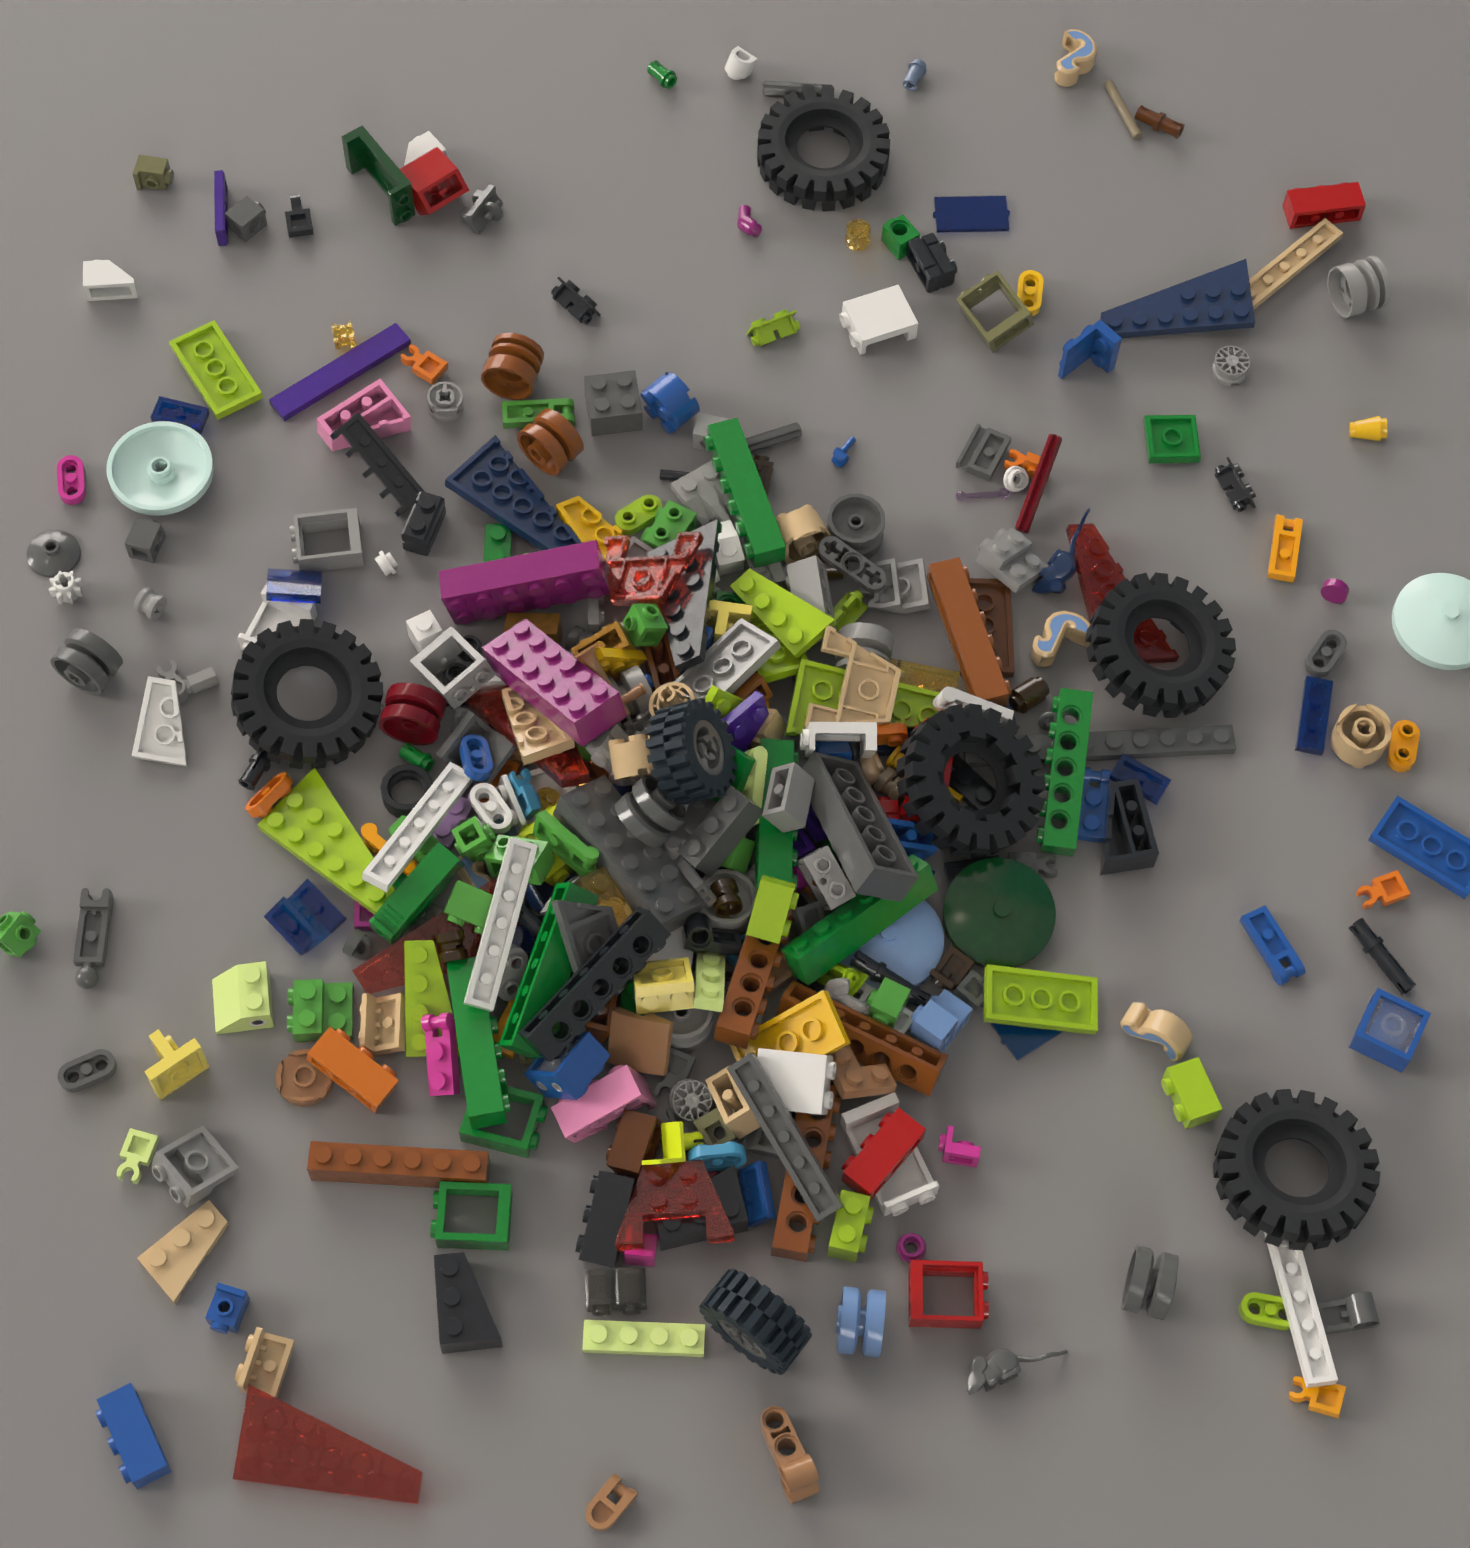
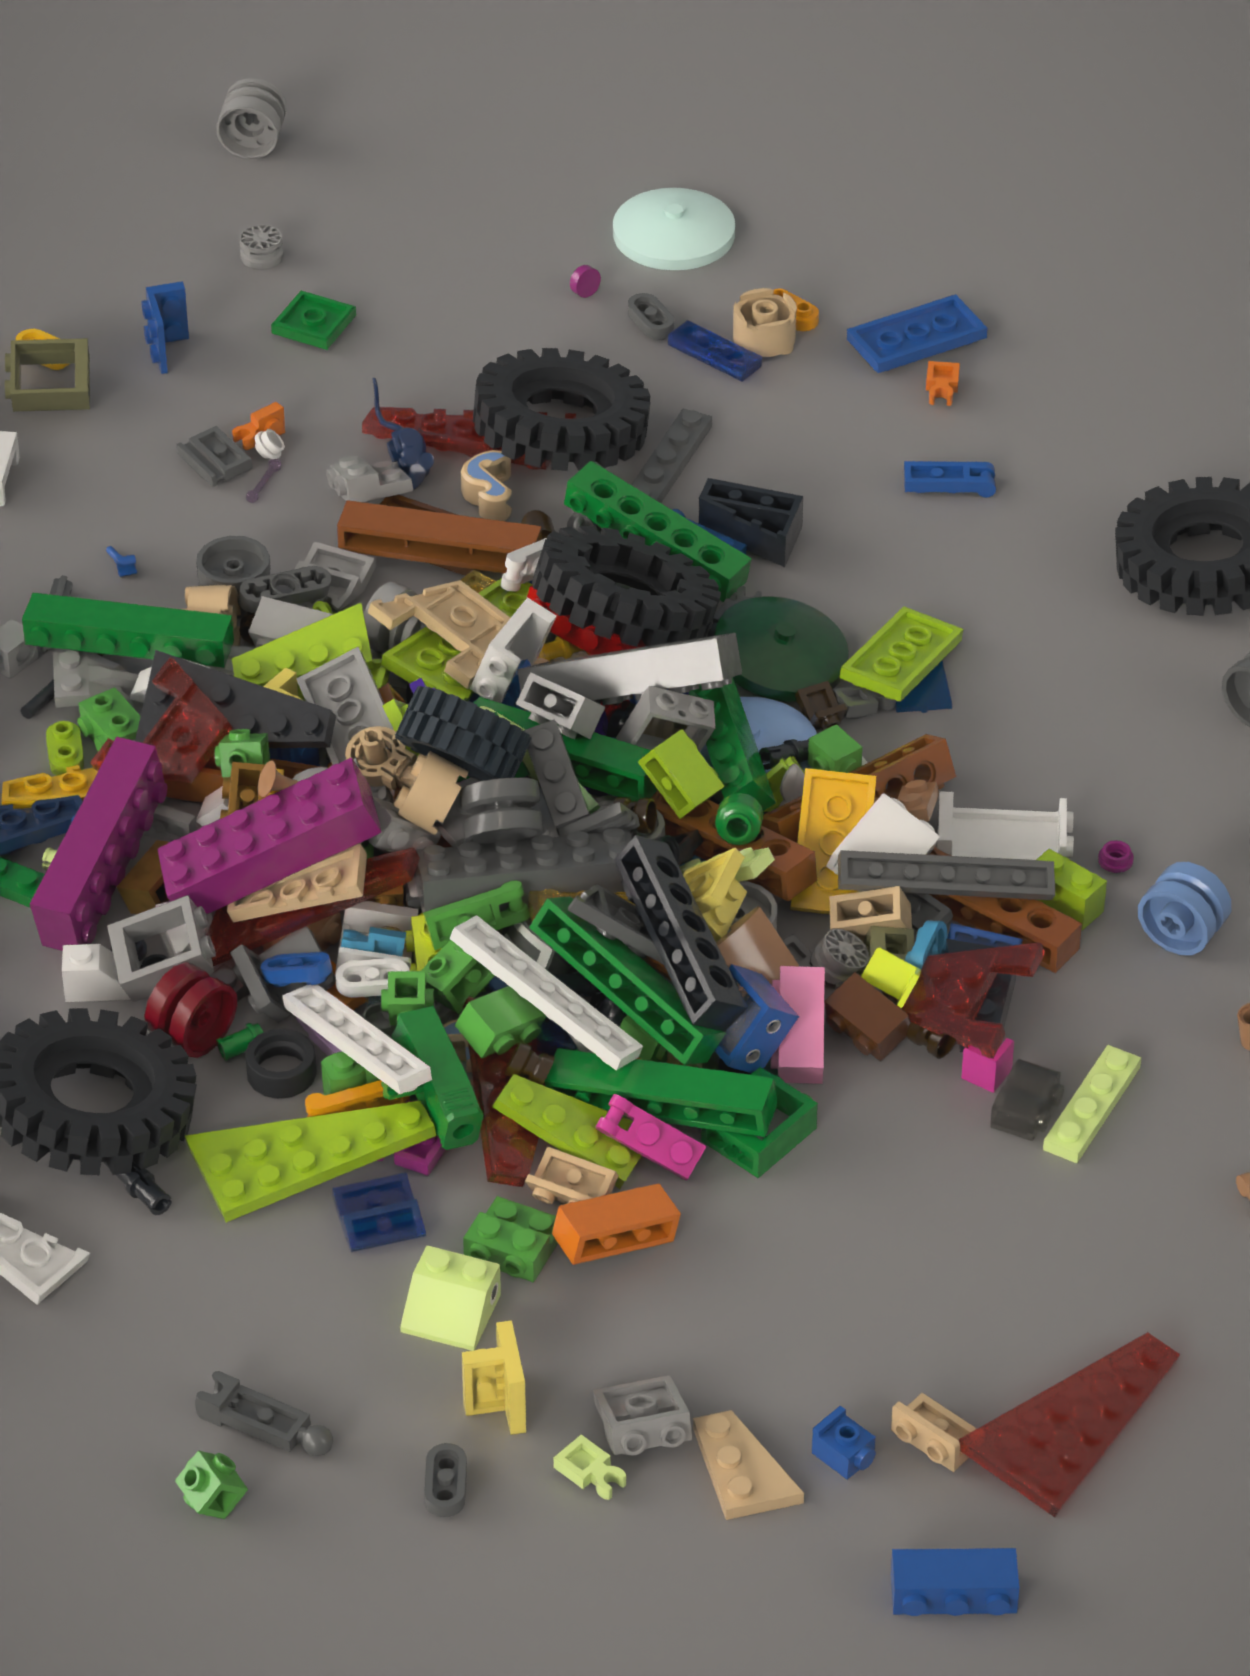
camera: 60 degrees left, 20 degrees down
(276, 788) = (192, 1186): orange plate -> none
(301, 1081) = (588, 1287): medium nougat tile -> none
(354, 942) = (451, 1174): dark grey tile -> none
(395, 1164) = (761, 1229): dark orange brick -> none
(461, 1308) = (967, 1231): black wedge -> none
(496, 1241) = (874, 1160): green window -> none
(605, 1217) = (938, 1068): black wedge -> none
(749, 969) = (739, 819): none -> green head
(755, 1321) = (1143, 974): black wheel -> none
(882, 1153) = (1001, 821): red brick -> none
(921, 1268) = (1185, 819): red window -> none
(939, 1020) = (881, 726): medium blue brick -> none
(958, 1153) = (1030, 782): dark pink bracket -> none
(1038, 483) = (294, 420): dark red axle -> none
(1151, 782) = (686, 495): clear blue plate -> none
(1158, 1027) = (988, 582): tan animal -> none
(1191, 1093) = (1077, 587): lime brick -> none
(1198, 305) = (167, 239): dark blue wing -> none
(1240, 494) = (421, 297): black hinge -> none
(1284, 548) = (507, 295): light orange plate -> none
(1293, 261) = (175, 167): tan plate -> none
(1334, 202) = (124, 109): red brick -> none
(1369, 429) = (417, 185): yellow cone -> none
(1384, 959) = (1011, 411): black pin -> none
(1389, 1030) = (1098, 430): piece -> none

